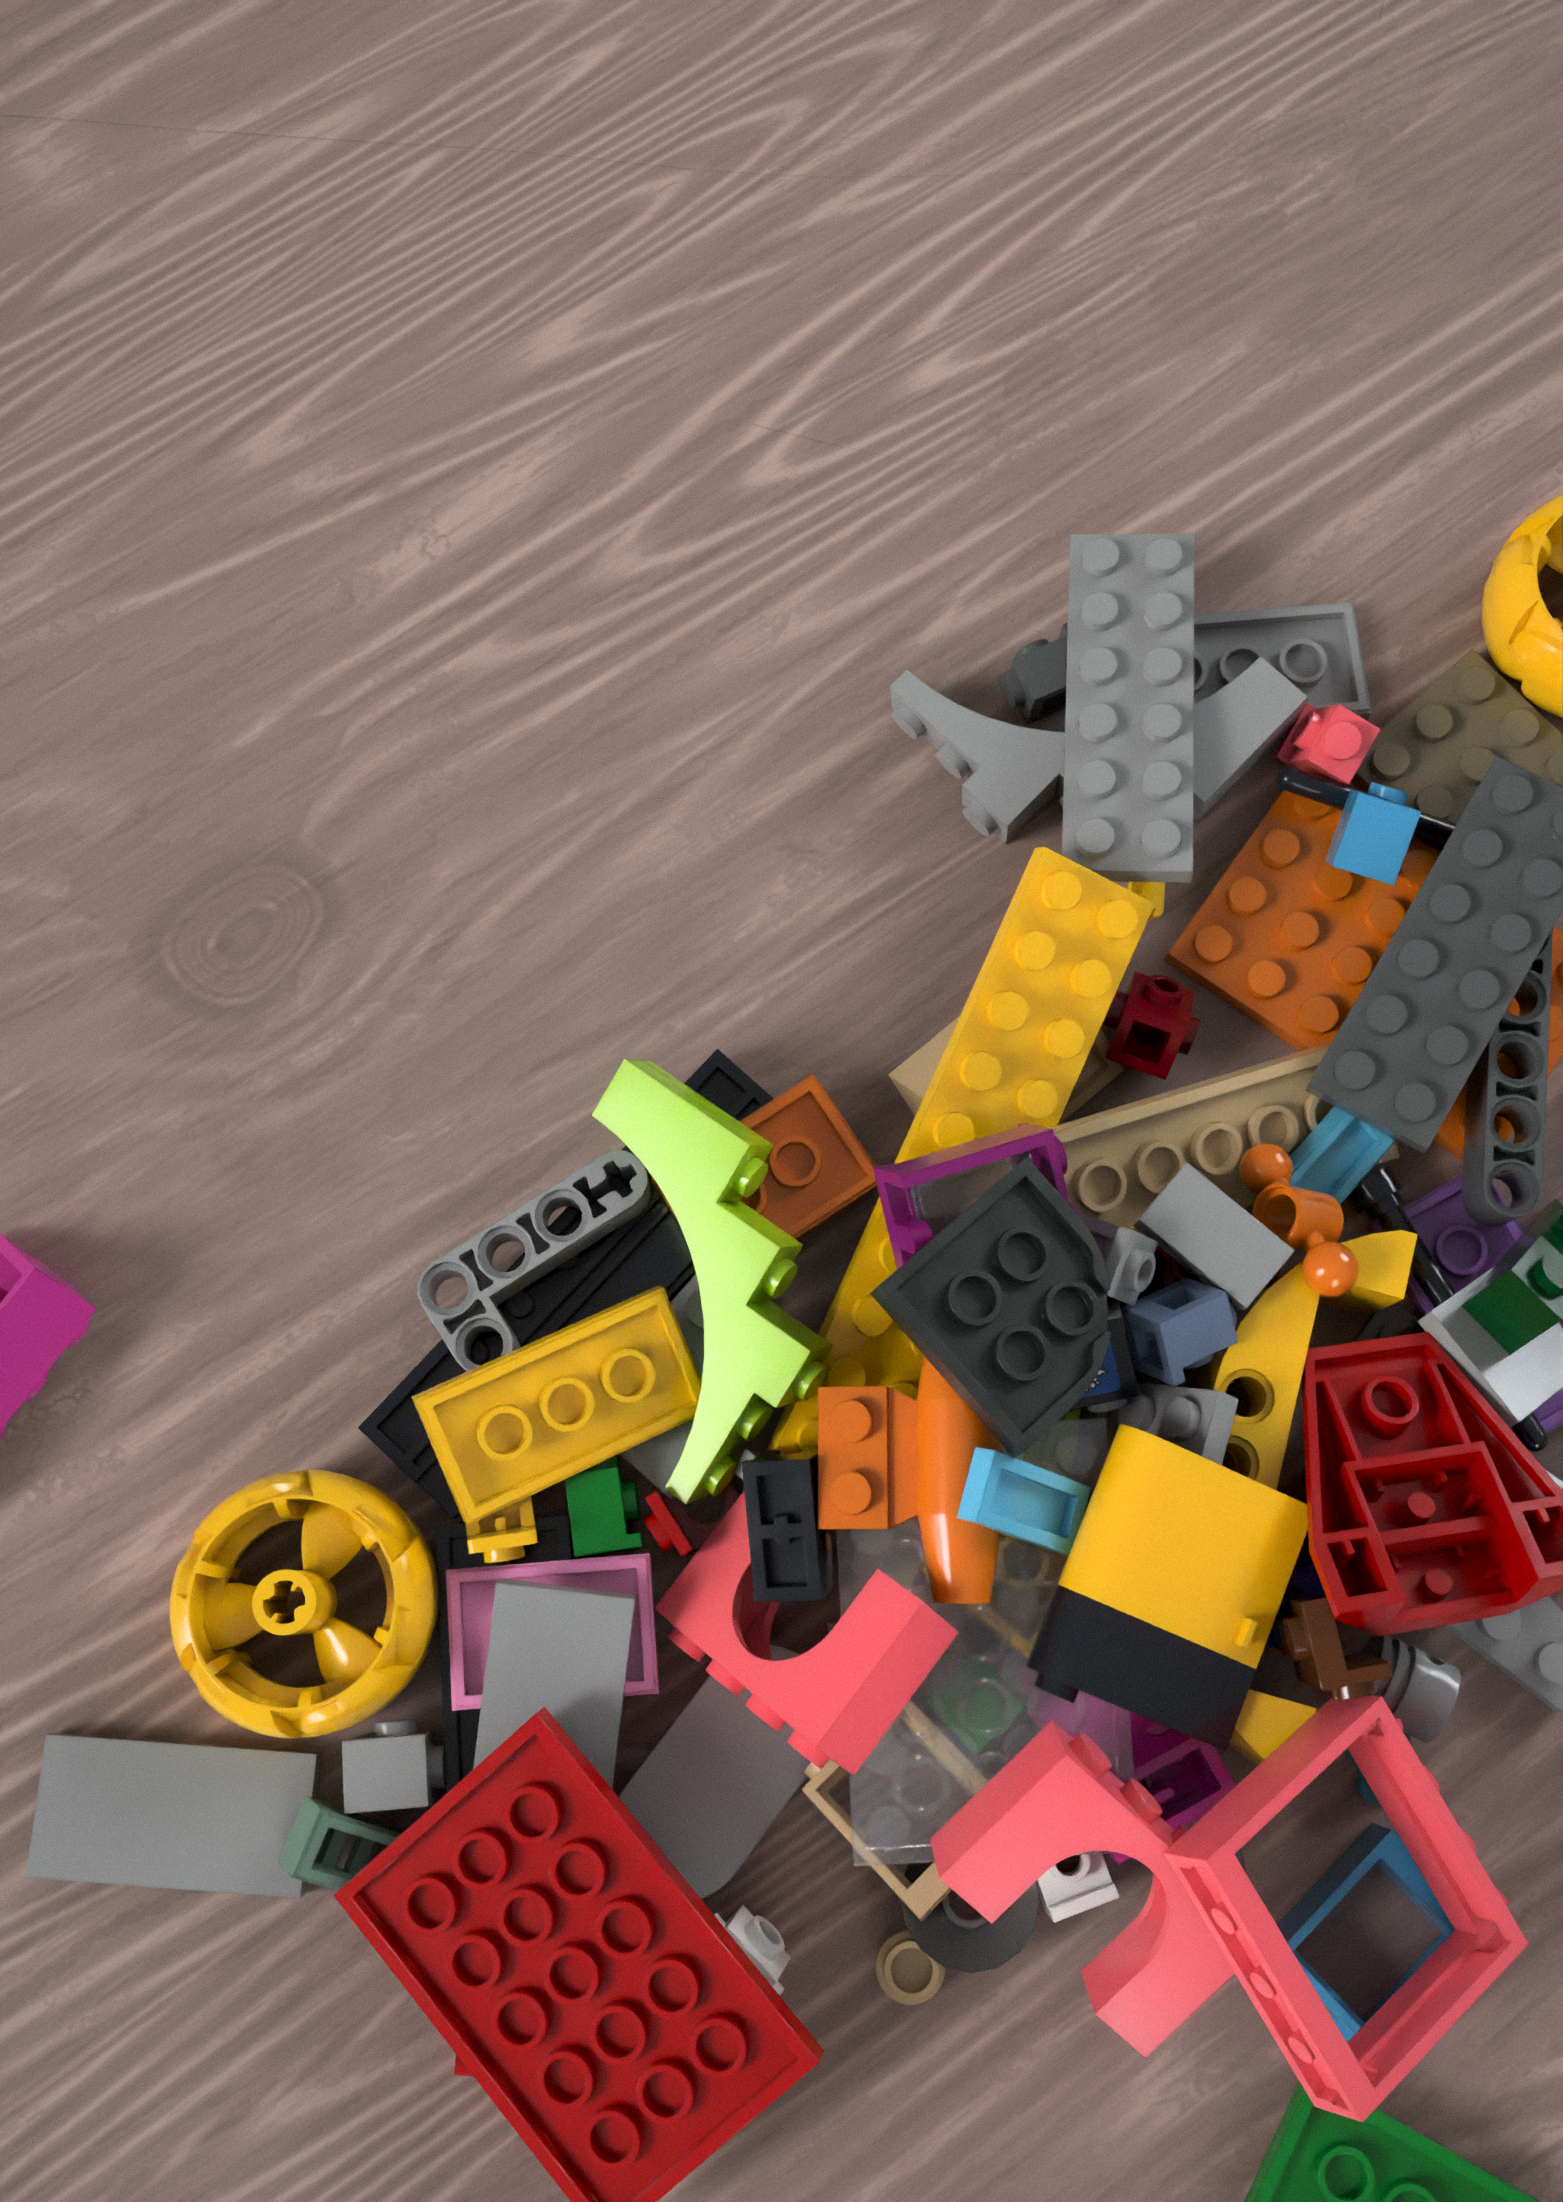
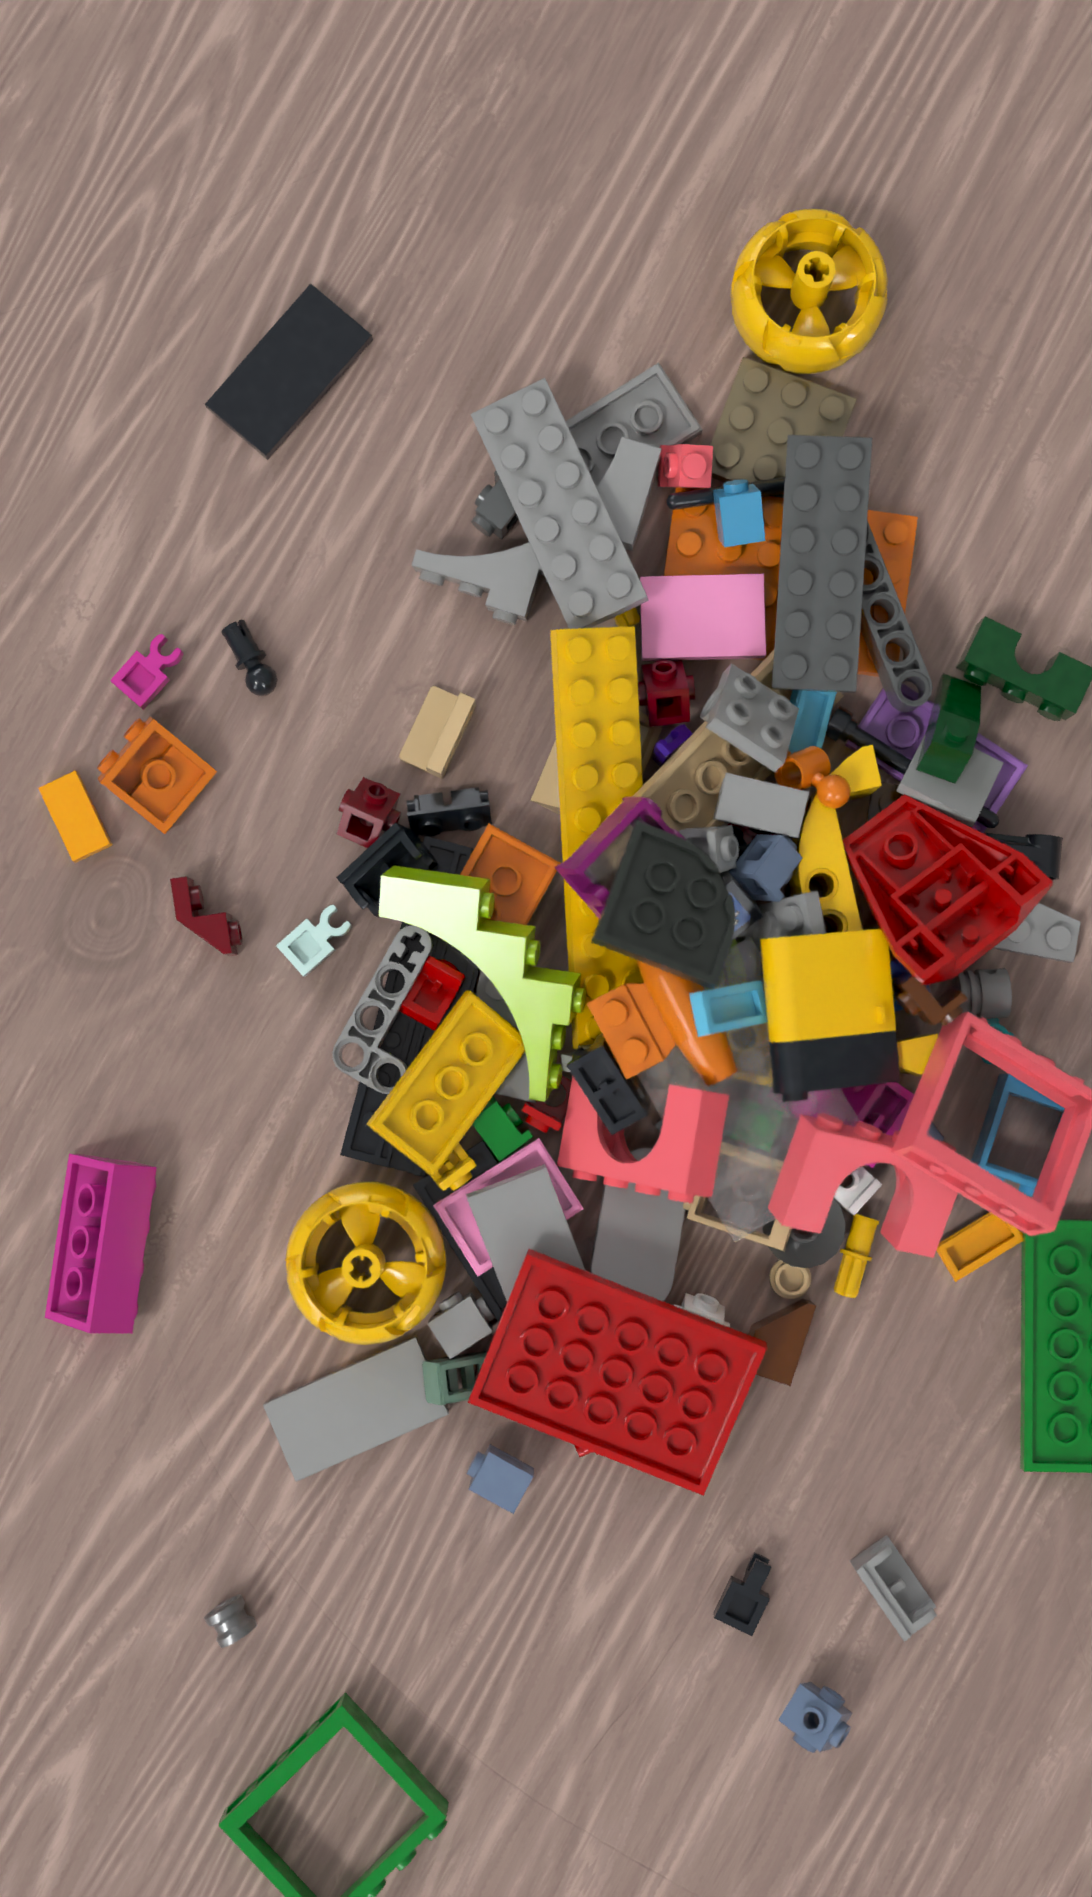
camera: 30 degrees left, 10 degrees up
(269, 791) = (75, 816): none -> light orange tile
(318, 2041) = (499, 1477): none -> sand blue brick
(365, 1027) = (215, 929): none -> dark red slope
(402, 785) = (155, 773): none -> orange plate
(460, 658) = (143, 677): none -> dark pink plate
(479, 1116) = (309, 945): none -> light aqua plate
(610, 1264) = (432, 992): none -> red bracket
(611, 735) = (259, 677): none -> black pin
(656, 979) = (368, 812): none -> dark red brick
(665, 1037) = (395, 847): none -> black hinge
(742, 1031) = (467, 812): none -> black hinge
(811, 924) = (437, 731): none -> tan panel
(857, 2057) = (785, 1337): none -> reddish brown slope
(859, 385) = (289, 371): none -> black tile
(1024, 1987) = (855, 1255): none -> yellow axle
(1113, 1093) = (666, 748): none -> dark purple tile
(1221, 2072) = (977, 1244): none -> light orange tile
(1254, 950) = (703, 617): none -> bright pink tile
(1260, 1107) = (751, 717): none -> light grey plate

